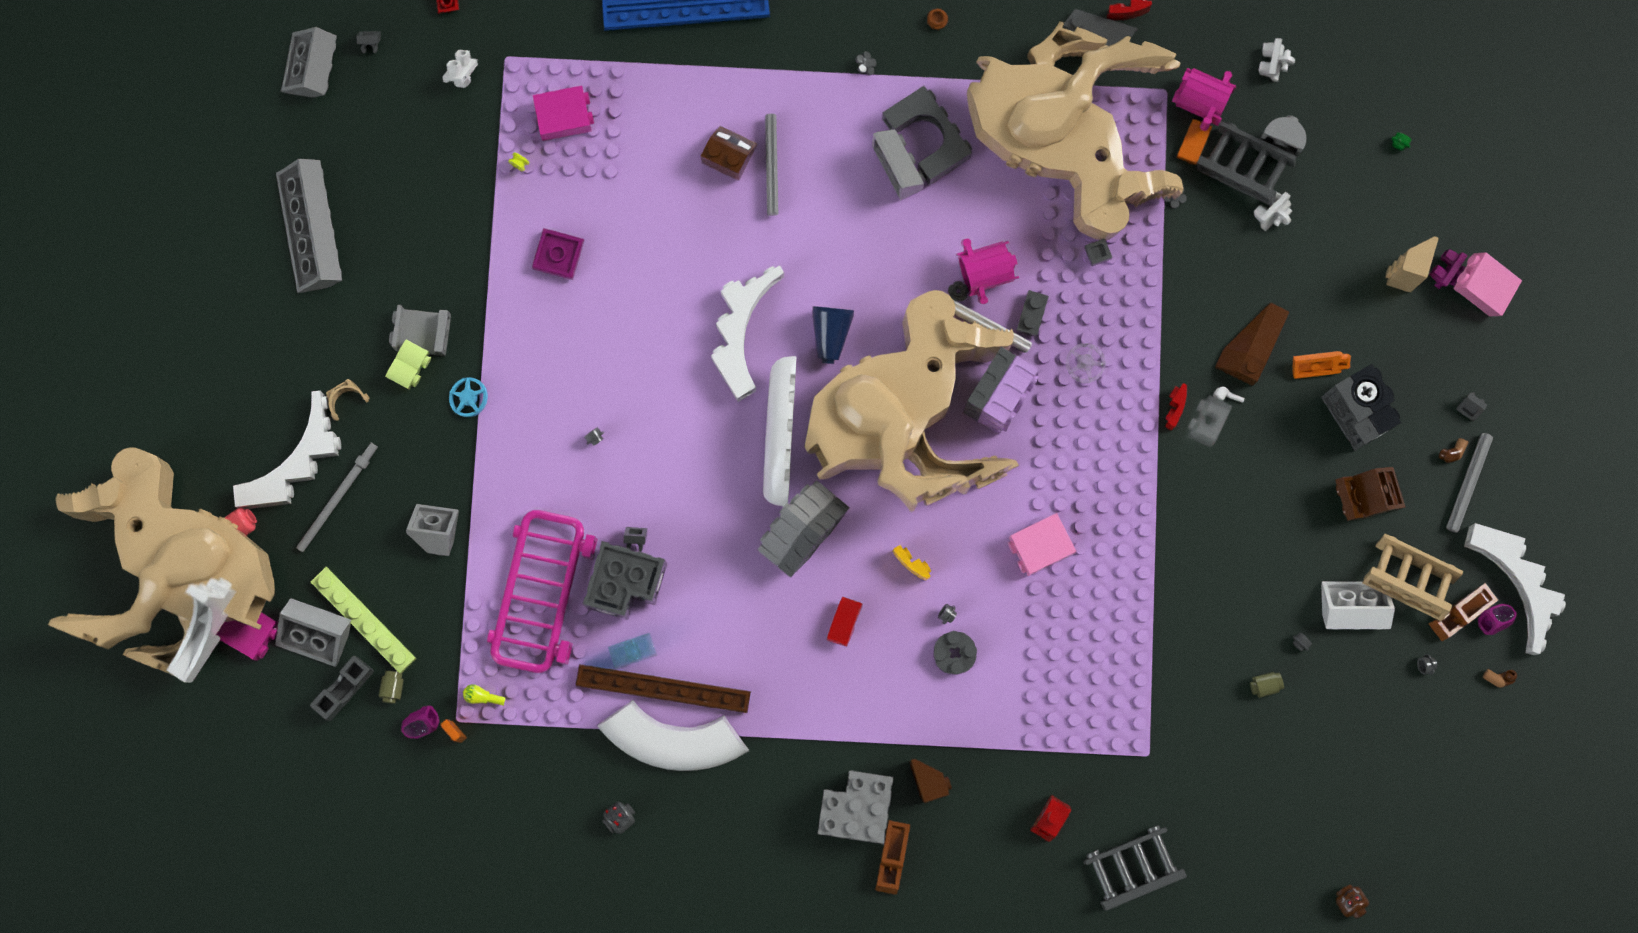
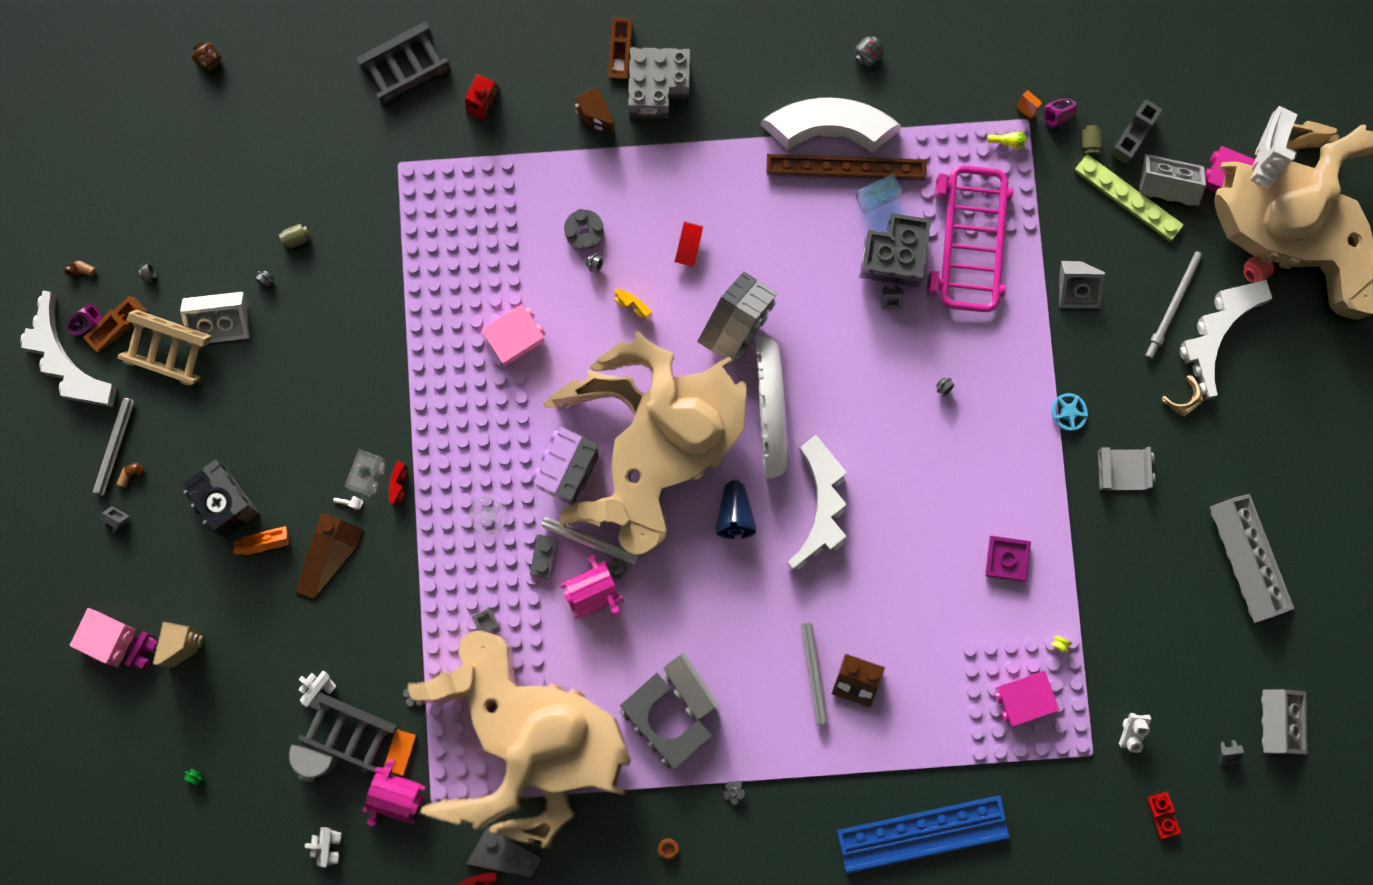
camera: 175 degrees right, 0 degrees up
(408, 365) = (1131, 434): yellowish green brick -> none
(1369, 493) = (208, 420): reddish brown bracket -> none

